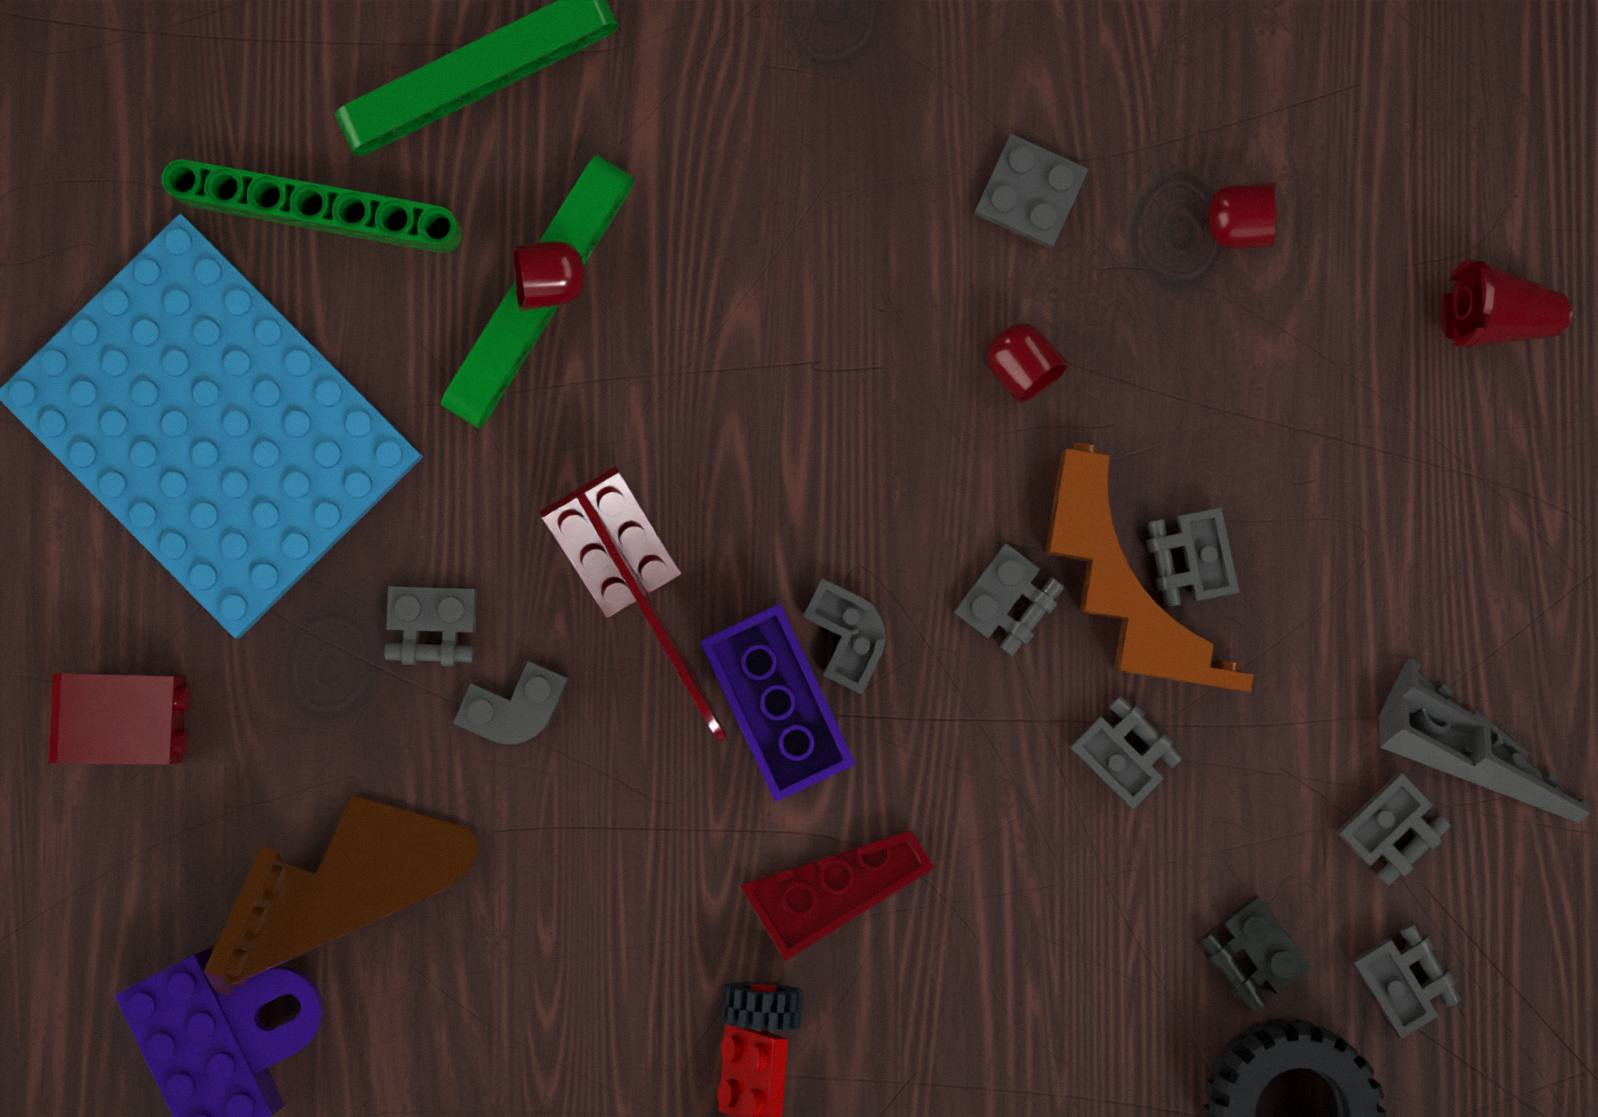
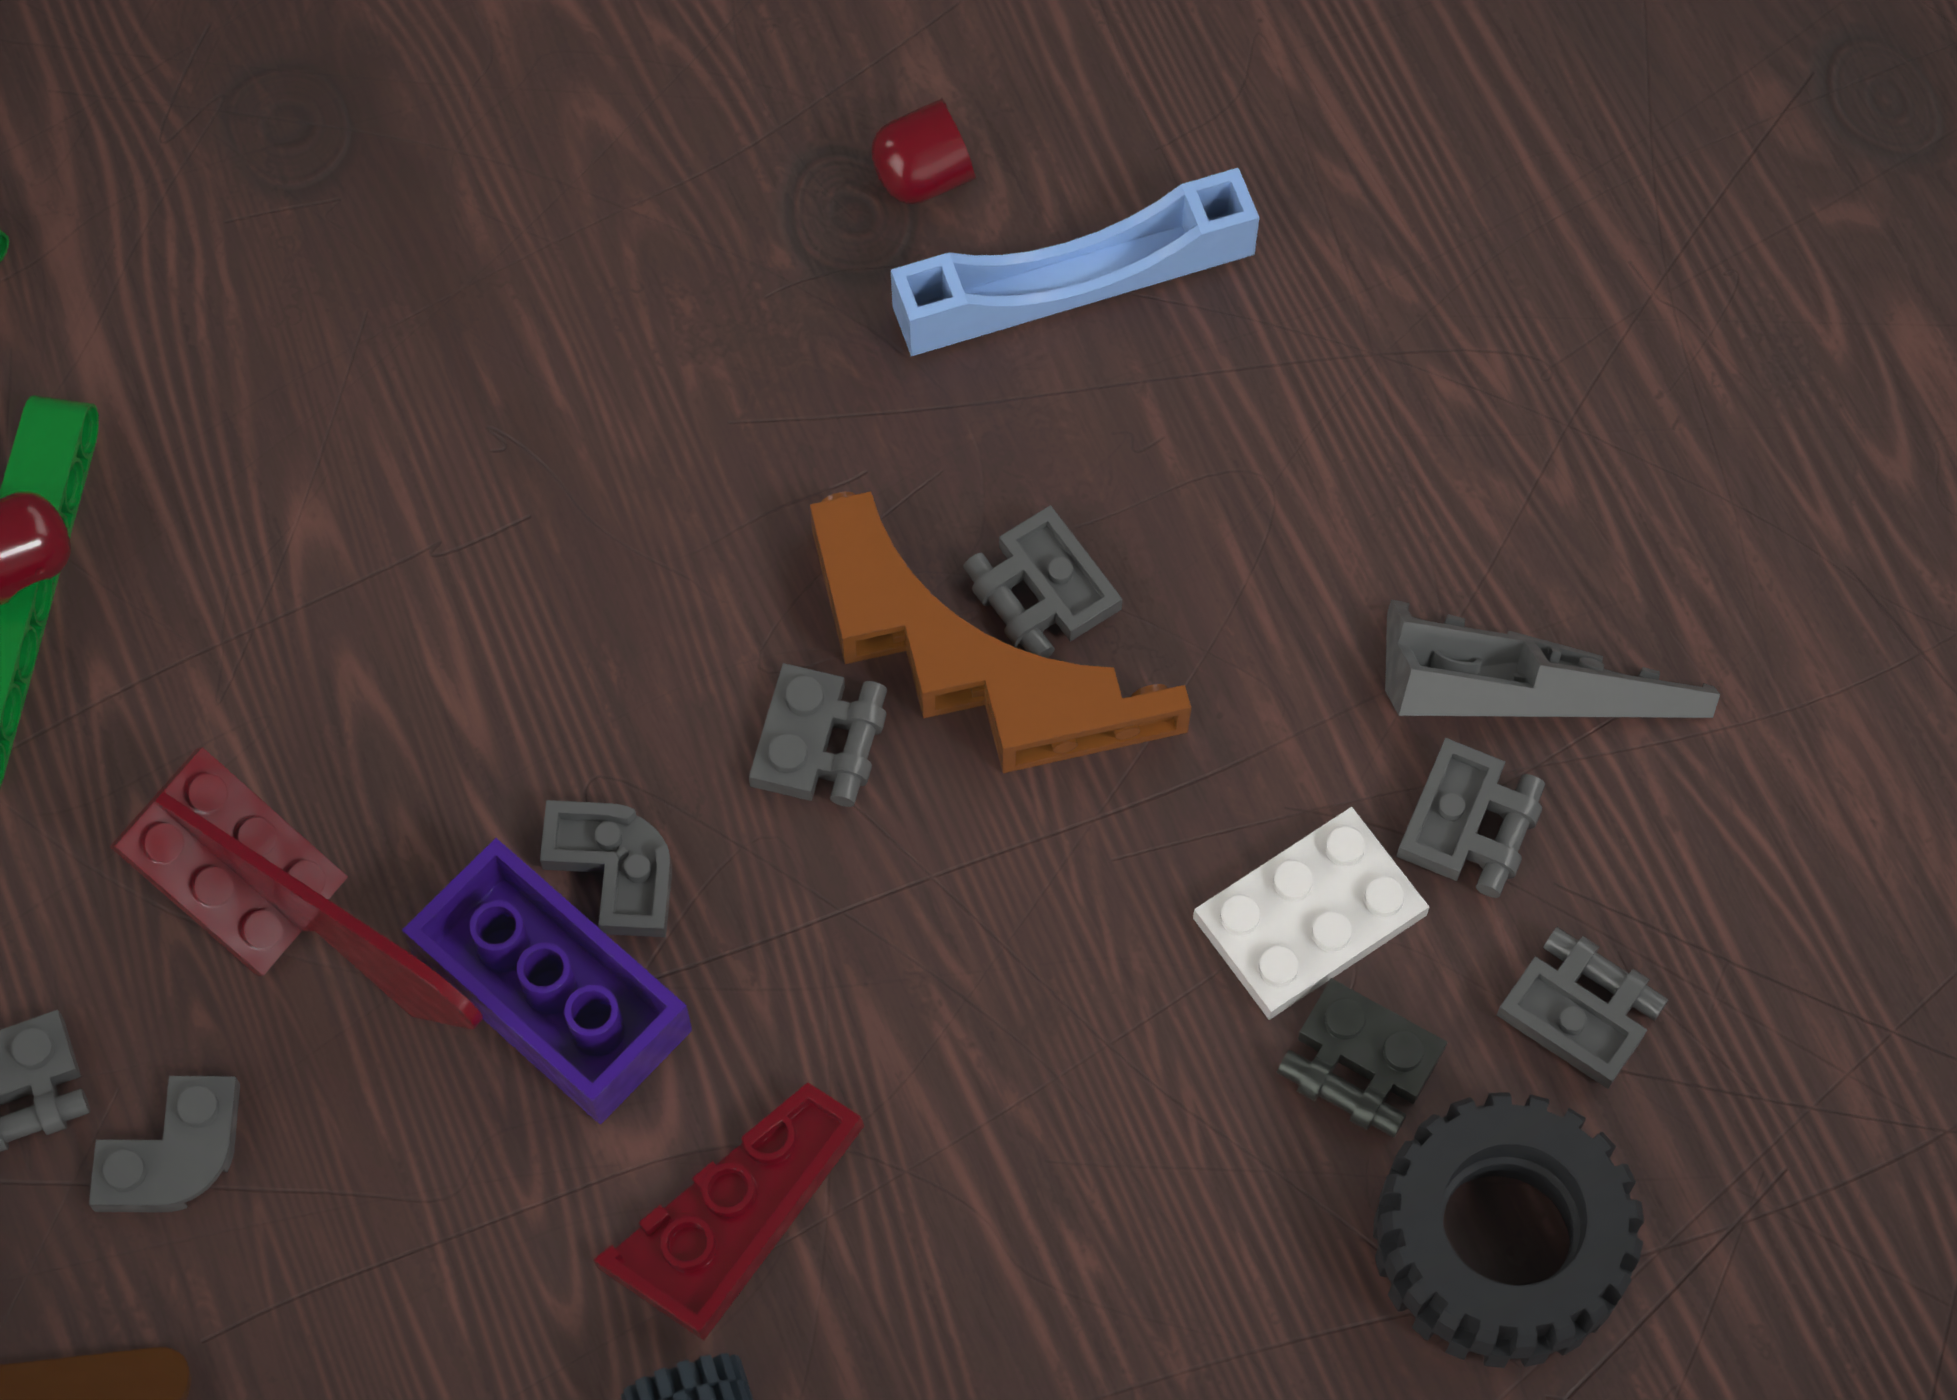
camera: 25 degrees left, 20 degrees down
(1025, 361) = (698, 421): dark red helmet -> none
(1031, 191) = (636, 236): dark grey plate -> none
(1117, 761) = (1056, 879): dark grey plate -> none
(1266, 846) = (1310, 912): none -> white plate
(1346, 345) = (975, 295): none -> light blue arch
(1500, 307) = (1299, 135): dark red cone -> none

